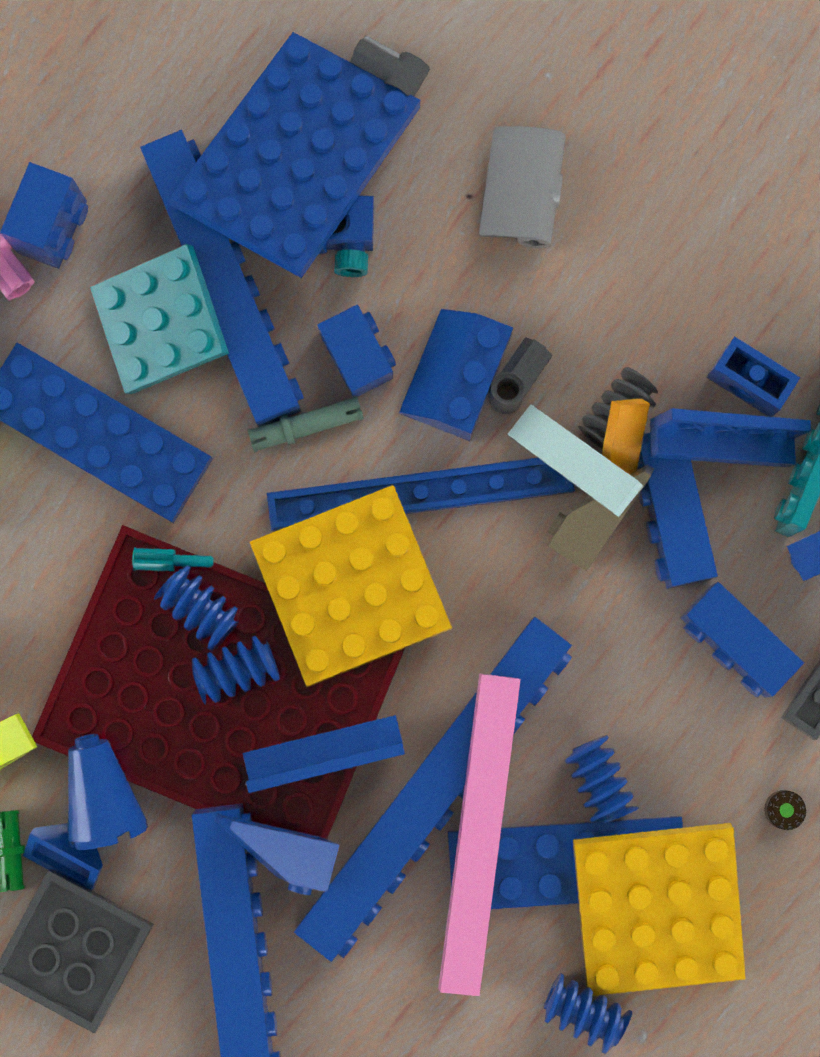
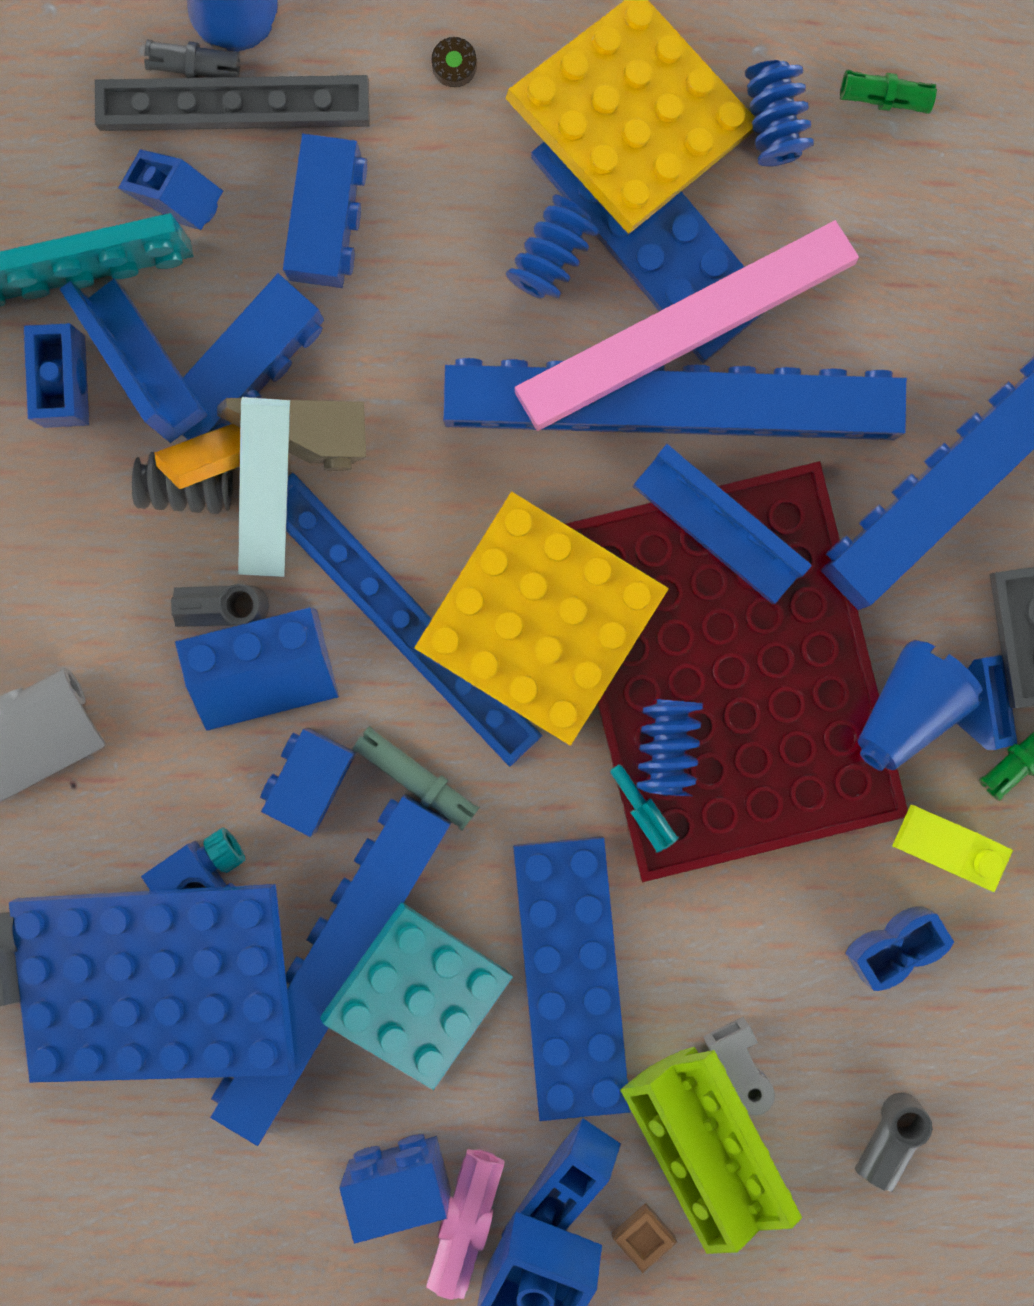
camera: 130 degrees left, 5 degrees up
(234, 669) = (704, 667): blue piece -> none
(290, 855) = (836, 481): slope -> none

